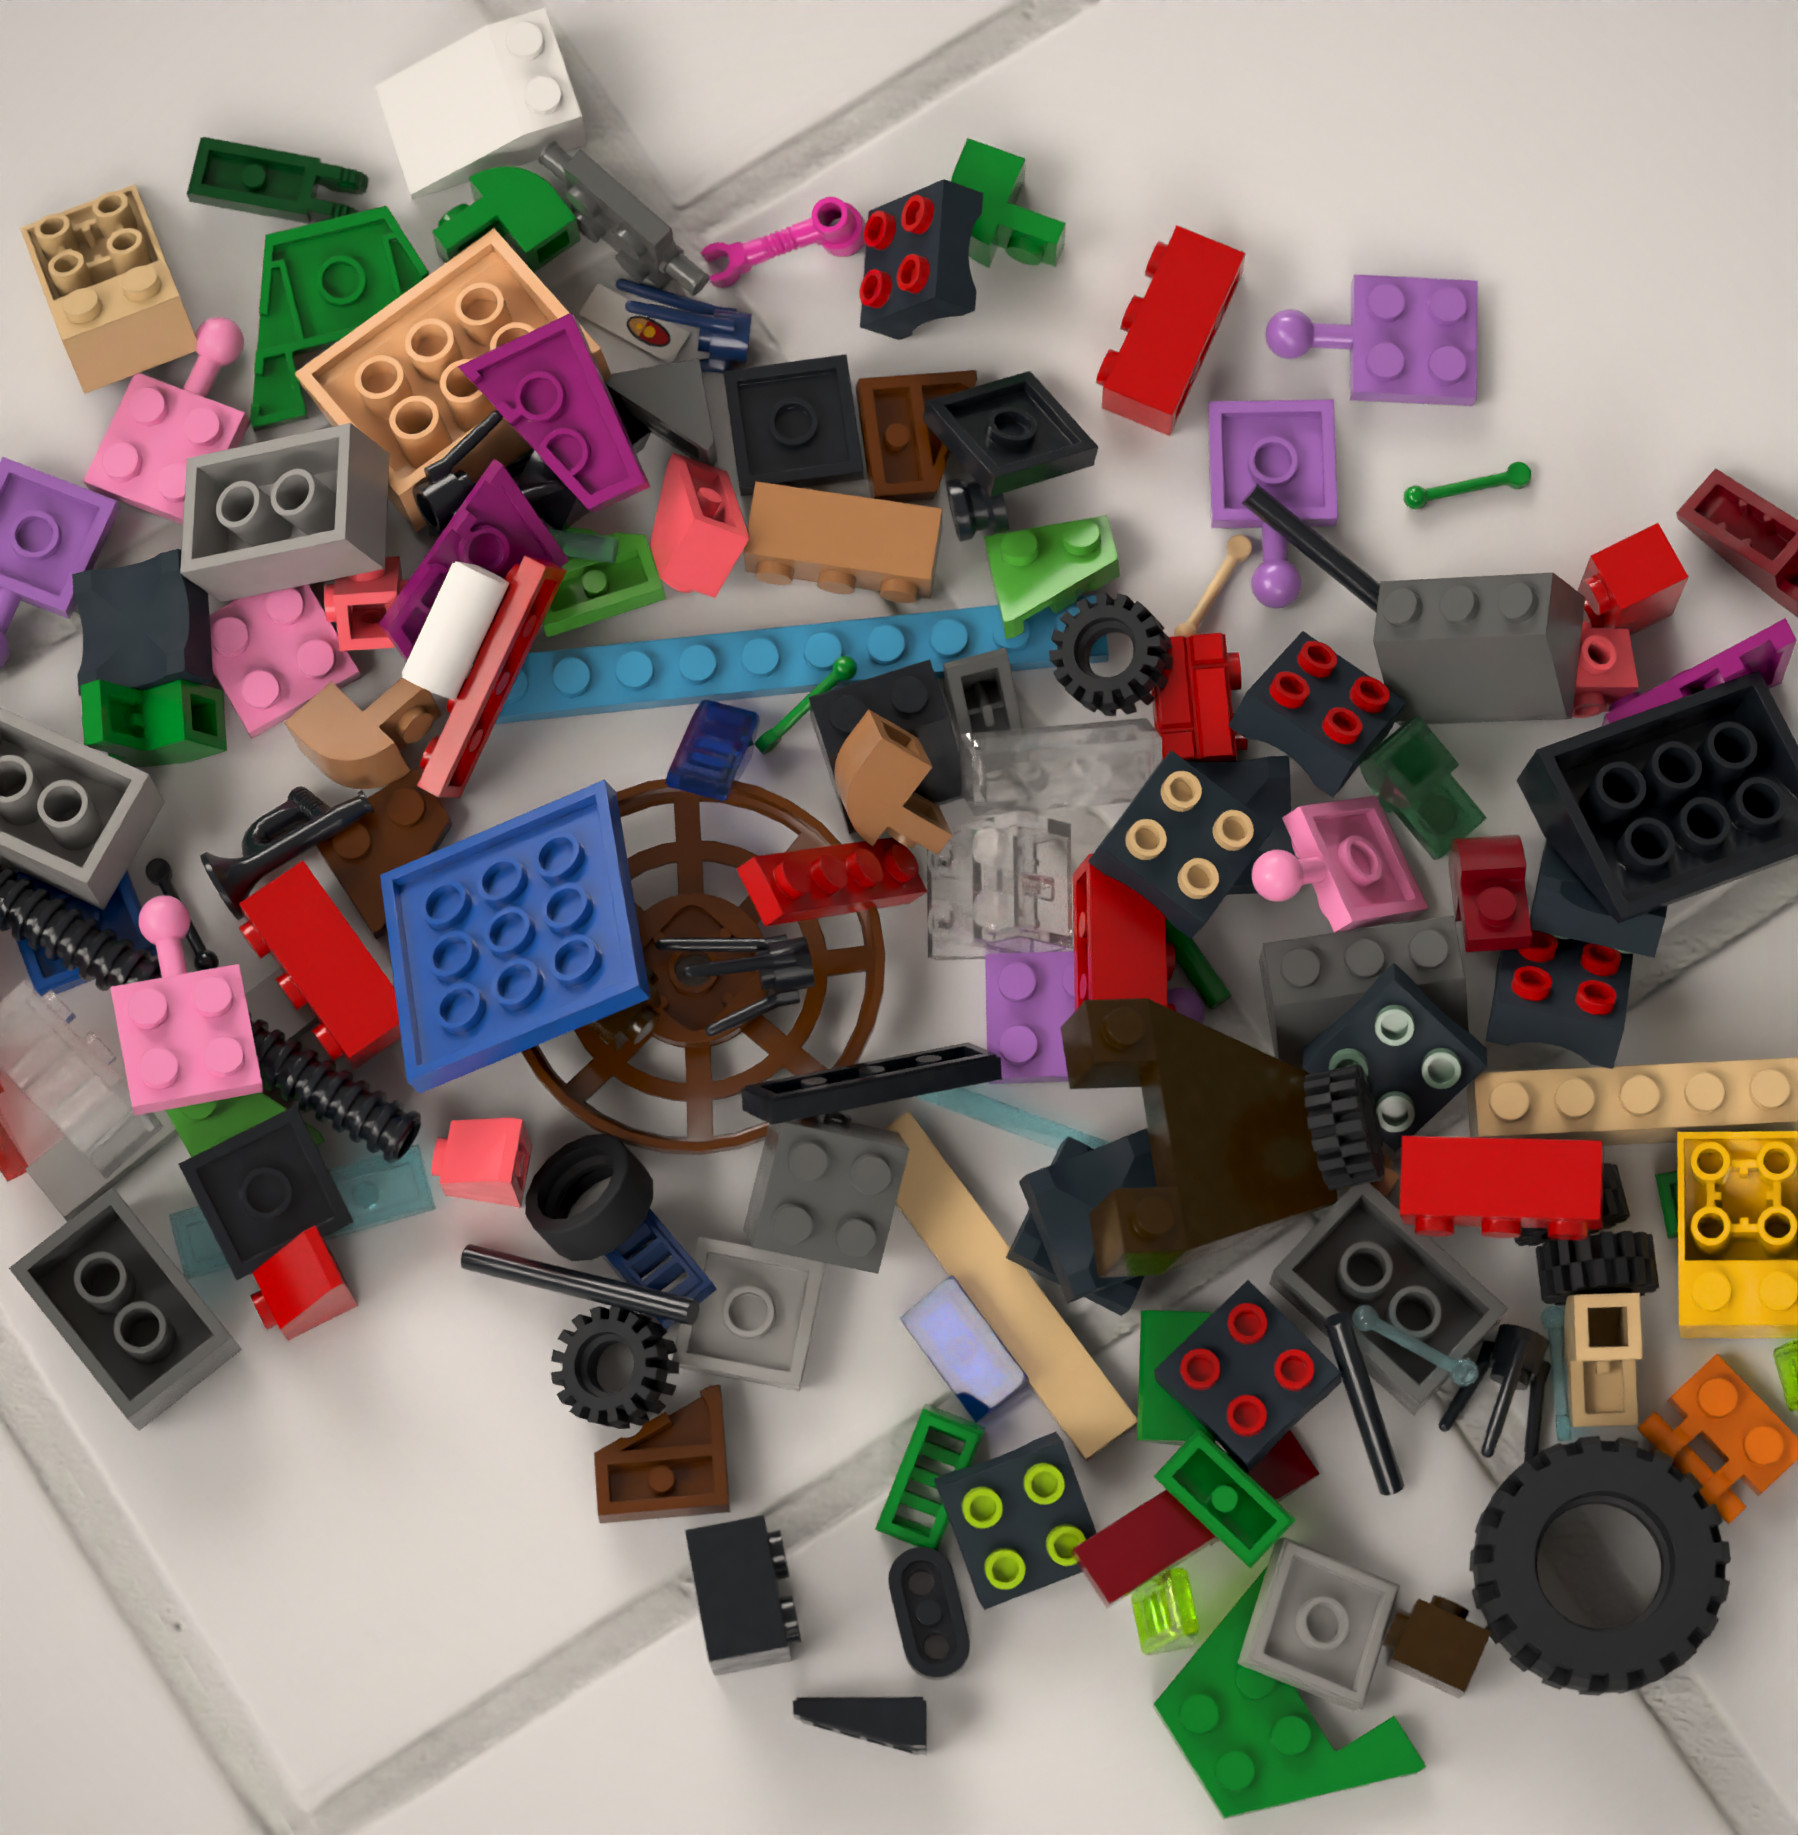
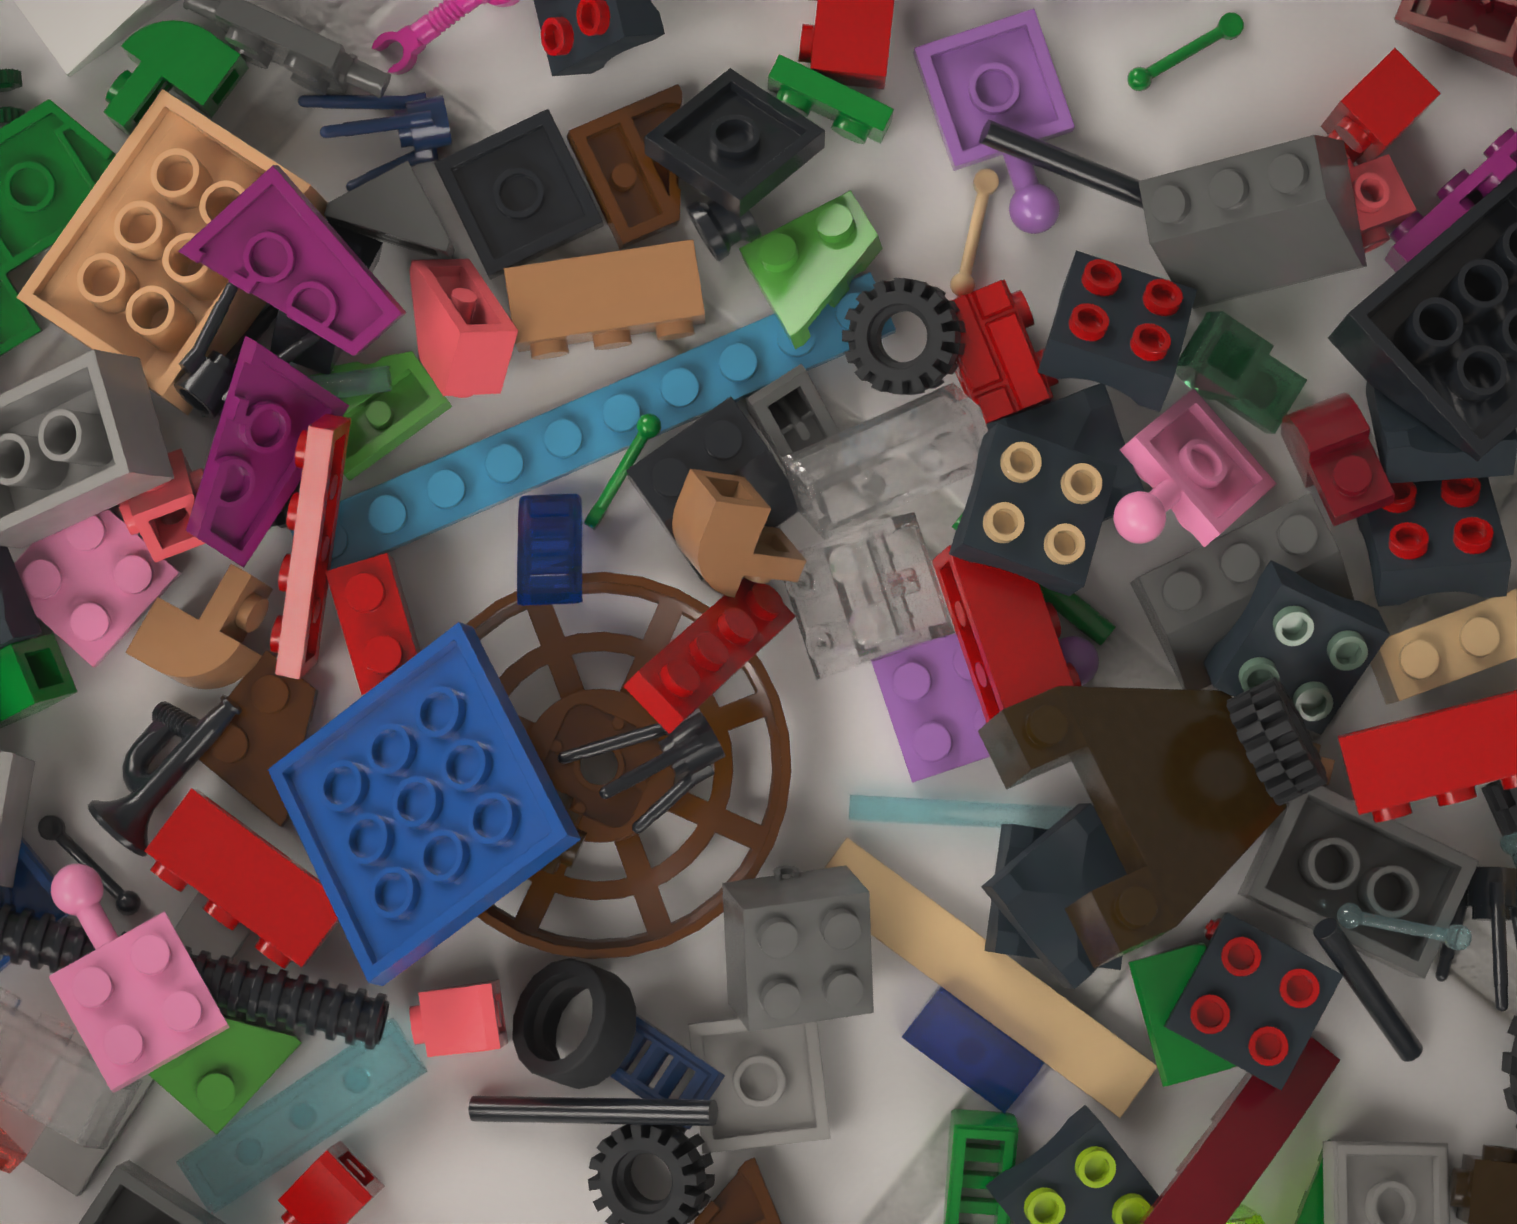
camera: 25 degrees left, 10 degrees up
(264, 1190) = (264, 1118): black plate -> none
(455, 629) = (264, 518): white brick -> none
(526, 758) = (373, 618): none -> red brick
(651, 335) = (302, 132): white sticker -> none
(870, 1083) = (808, 834): black tile -> none
(1129, 441) = (806, 90): none -> green plate
(1224, 1497) = (1267, 1122): green slope -> none

